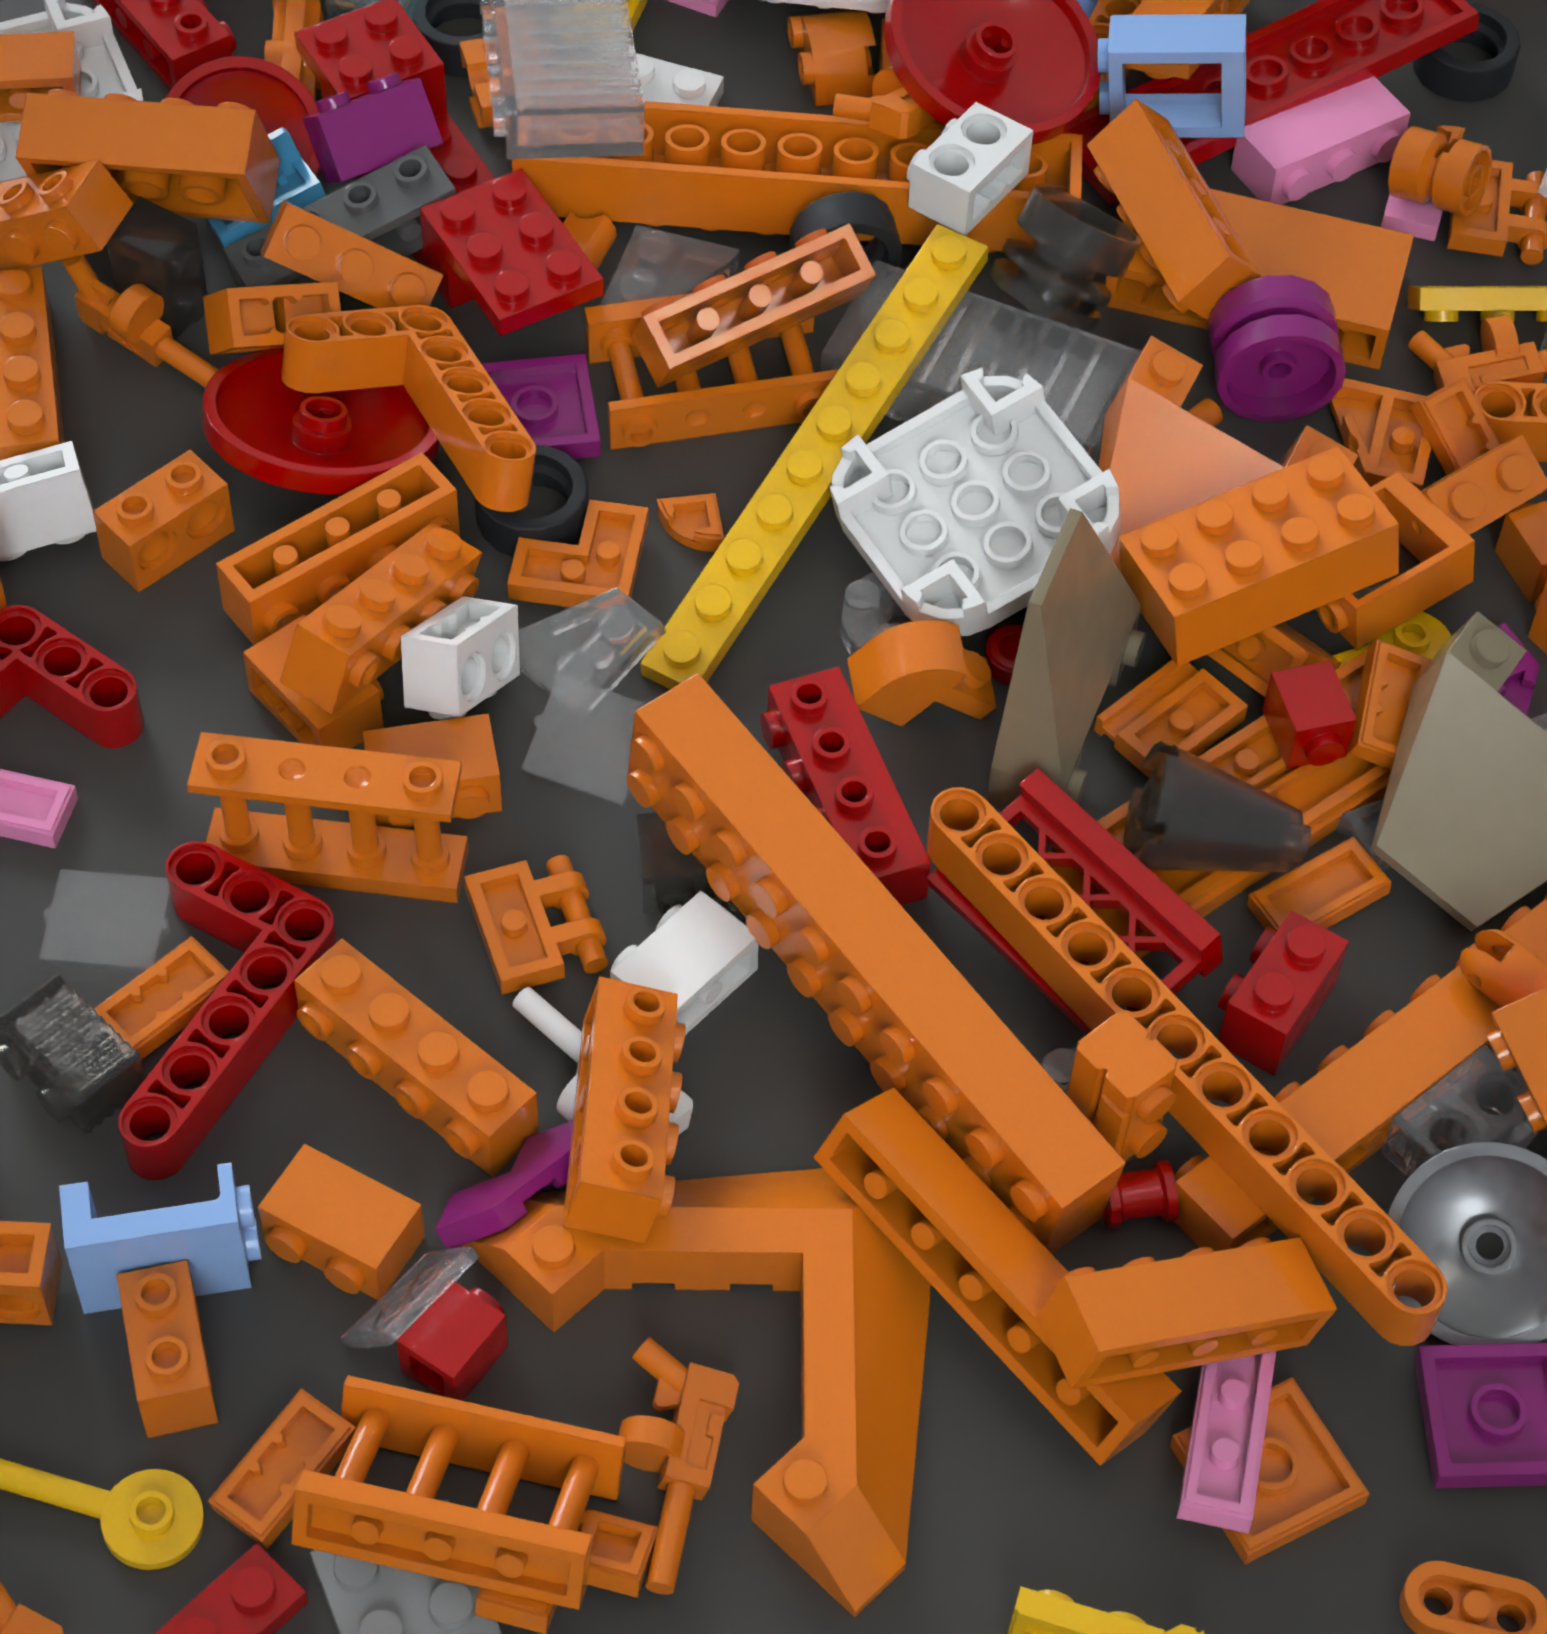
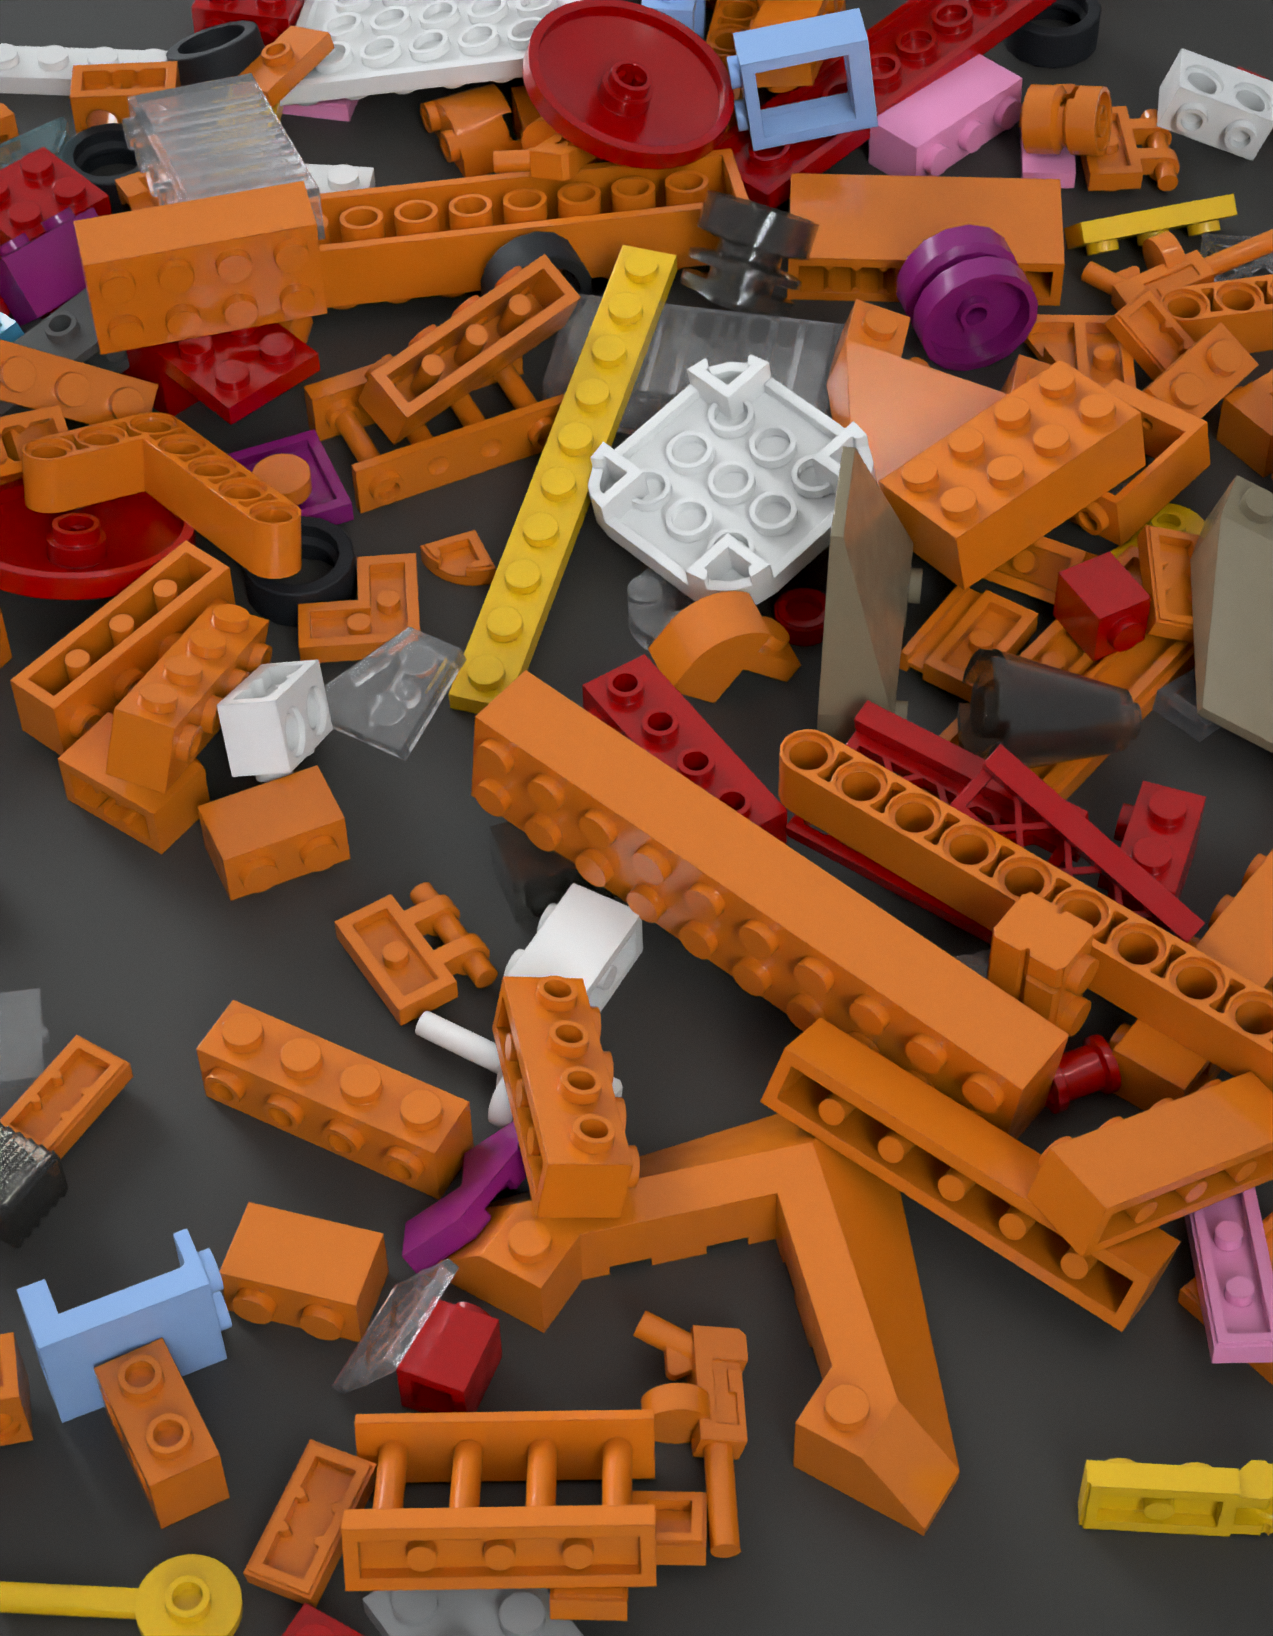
camera: 10 degrees left, 5 degrees down
(236, 1005) = (165, 1017): red beam -> none
(329, 852) = (189, 930): orange fence -> none
(503, 170) = (202, 267): none -> orange brick
(538, 403) = (287, 475): none -> orange tile
(584, 740) = (418, 773): clear piece -> none
(666, 265) = (363, 337): clear wing -> none
(969, 168) = (639, 189): white brick -> none
(1170, 209) = (835, 192): orange brick -> none
(1201, 961) = (1080, 836): none -> red fence
(1322, 888) = (1166, 755): orange tile -> none

